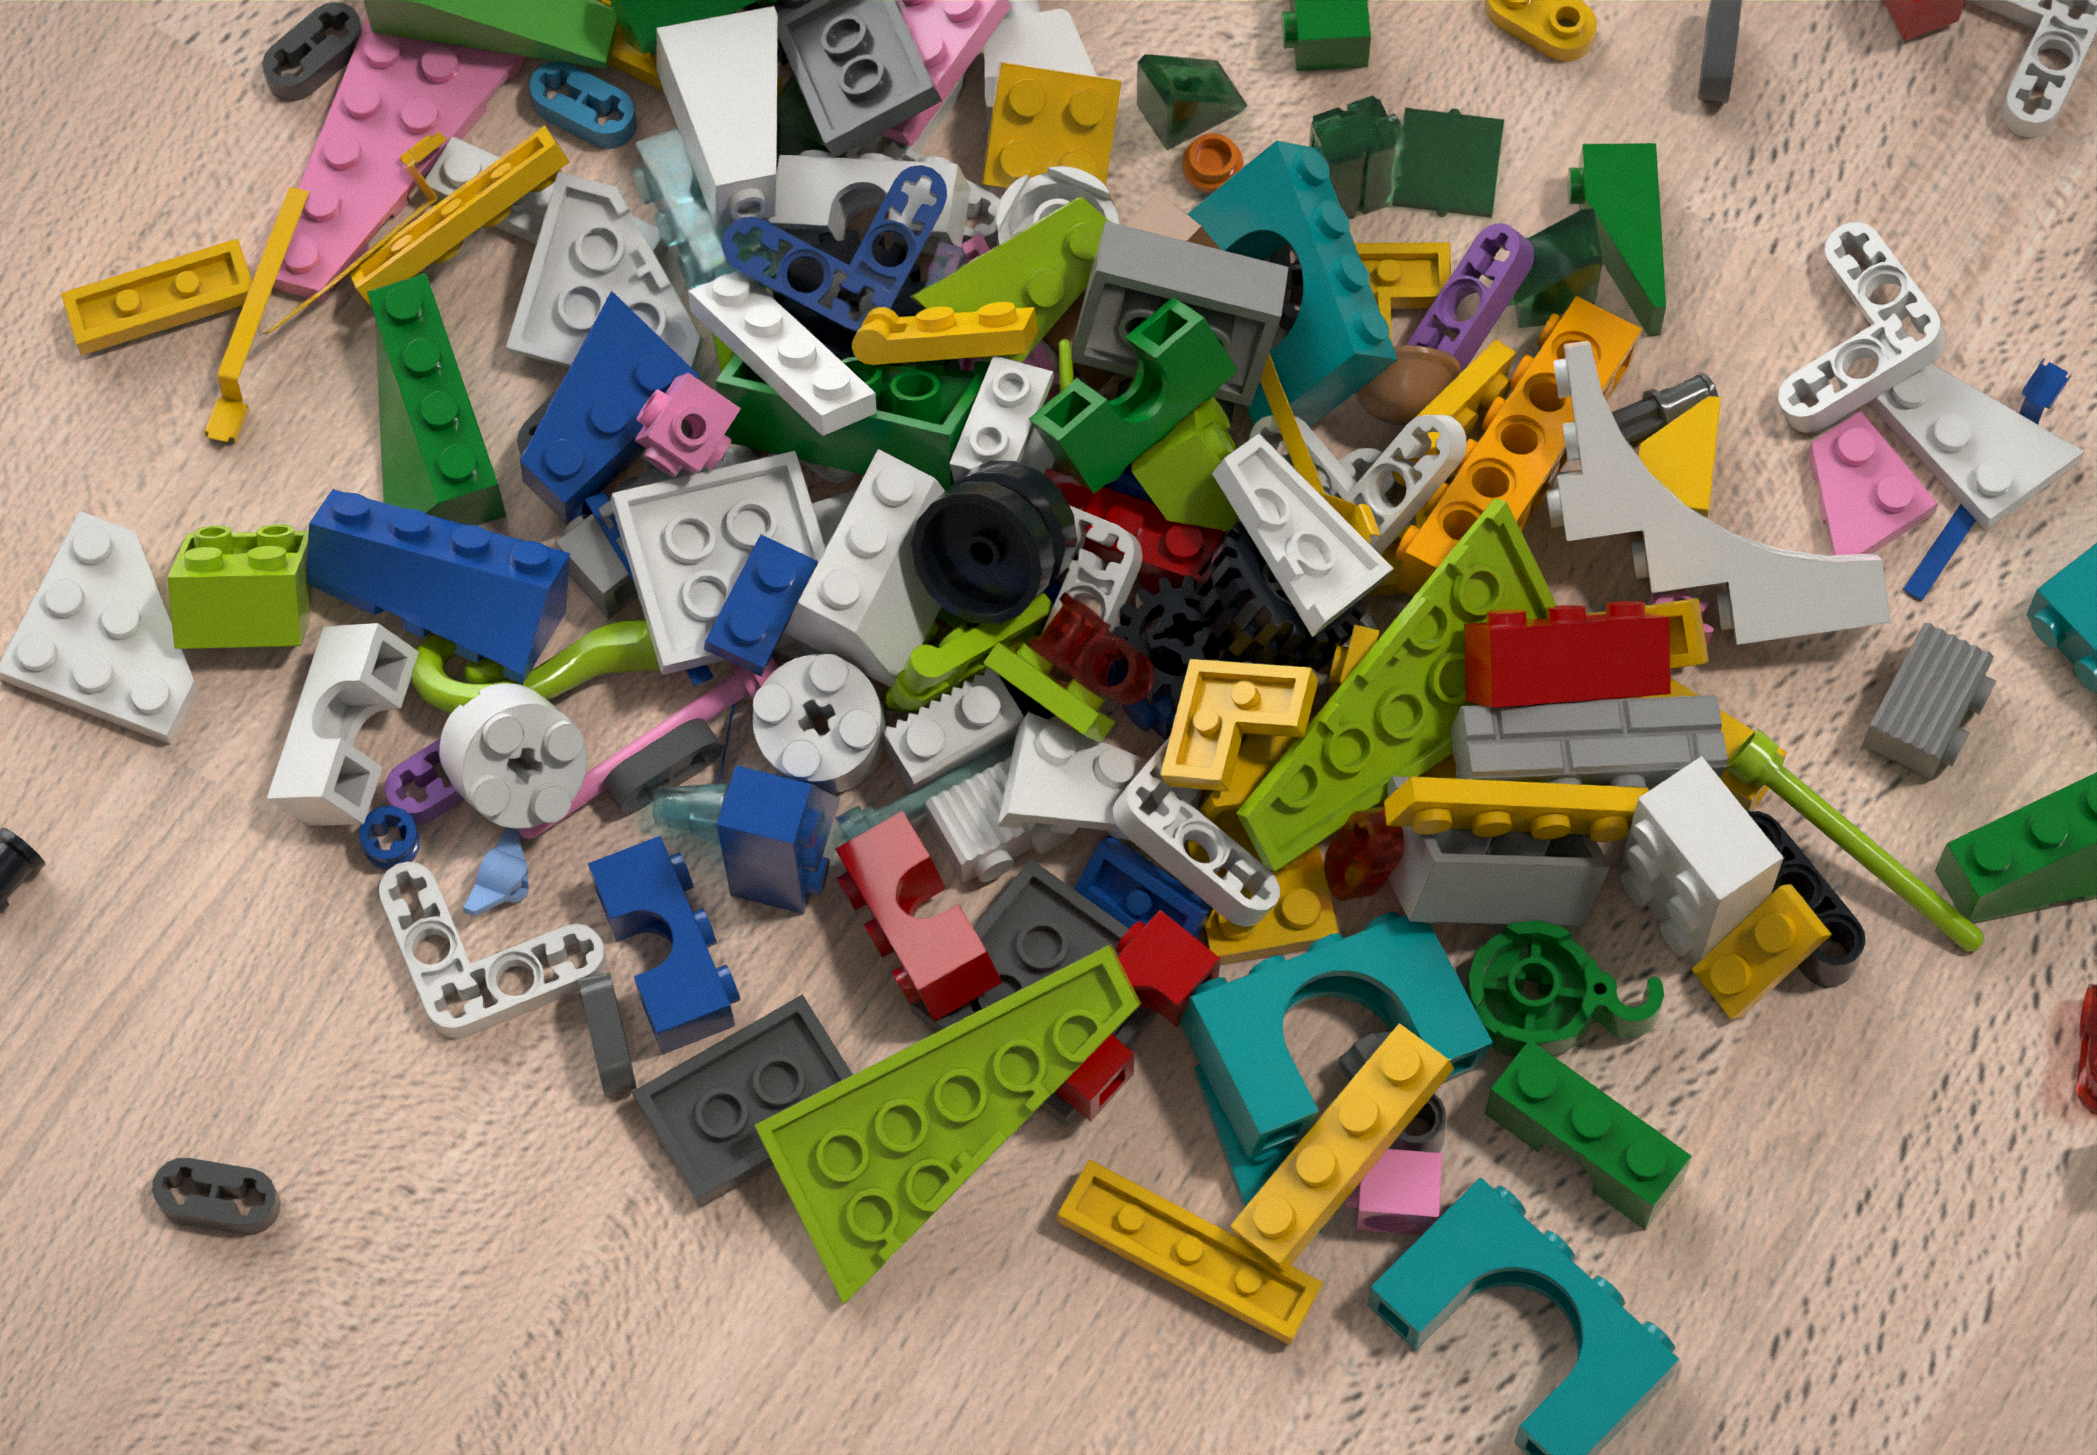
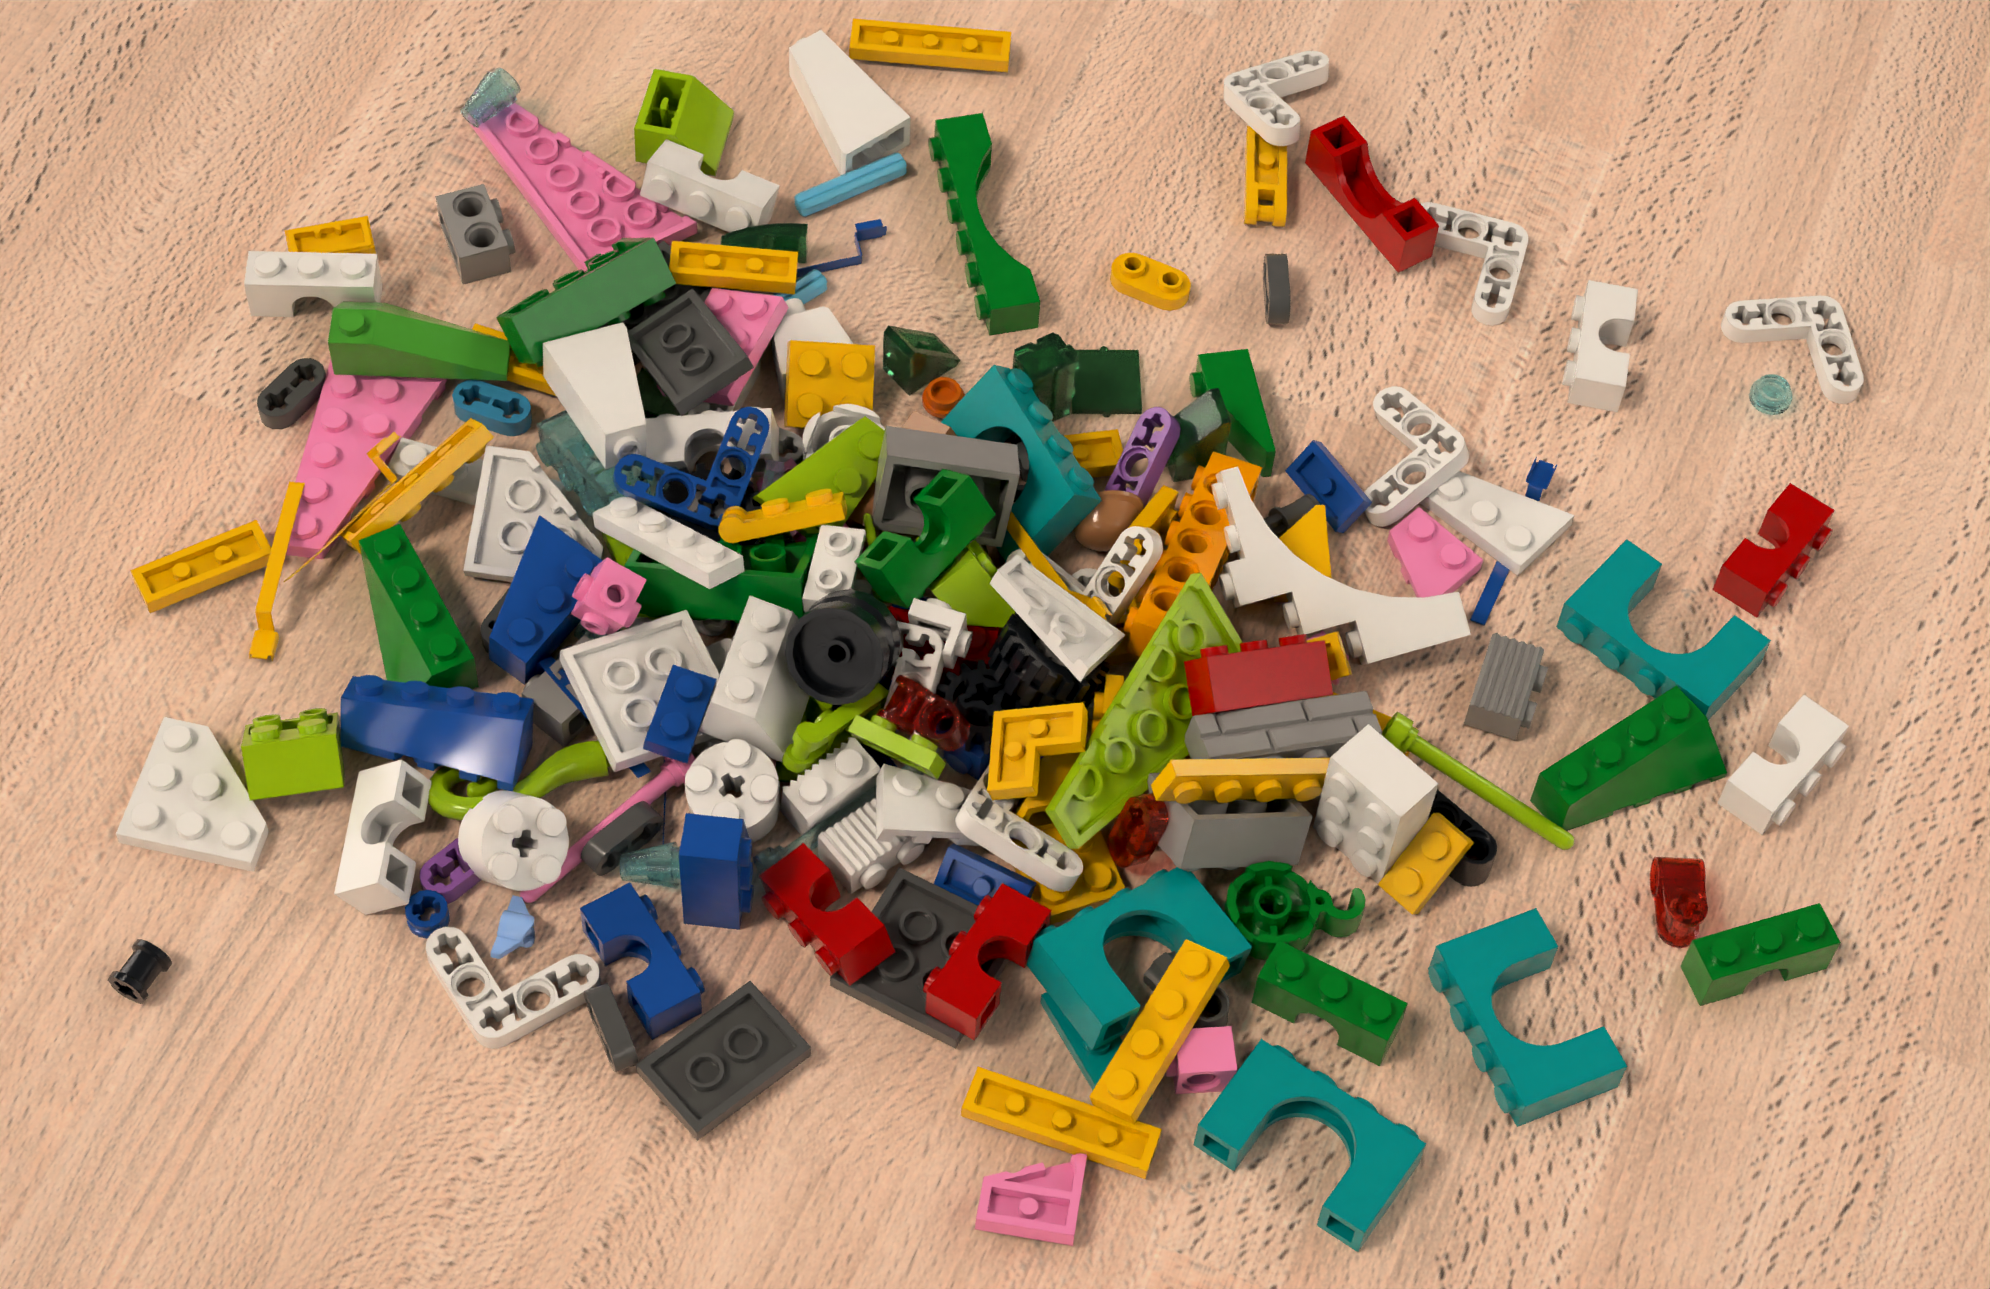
camera: 15 degrees left, 10 degrees down
(214, 1211) = (334, 1180): dark grey beam -> none
(909, 1131) = (847, 1059): lime wing -> none
(1134, 1357) = (1033, 1201): none -> bright pink wing
(1136, 513) = (946, 623): none -> white bracket
(1737, 364) = (1323, 477): none -> blue plate
(1846, 1280) = (1526, 1076): none -> teal arch

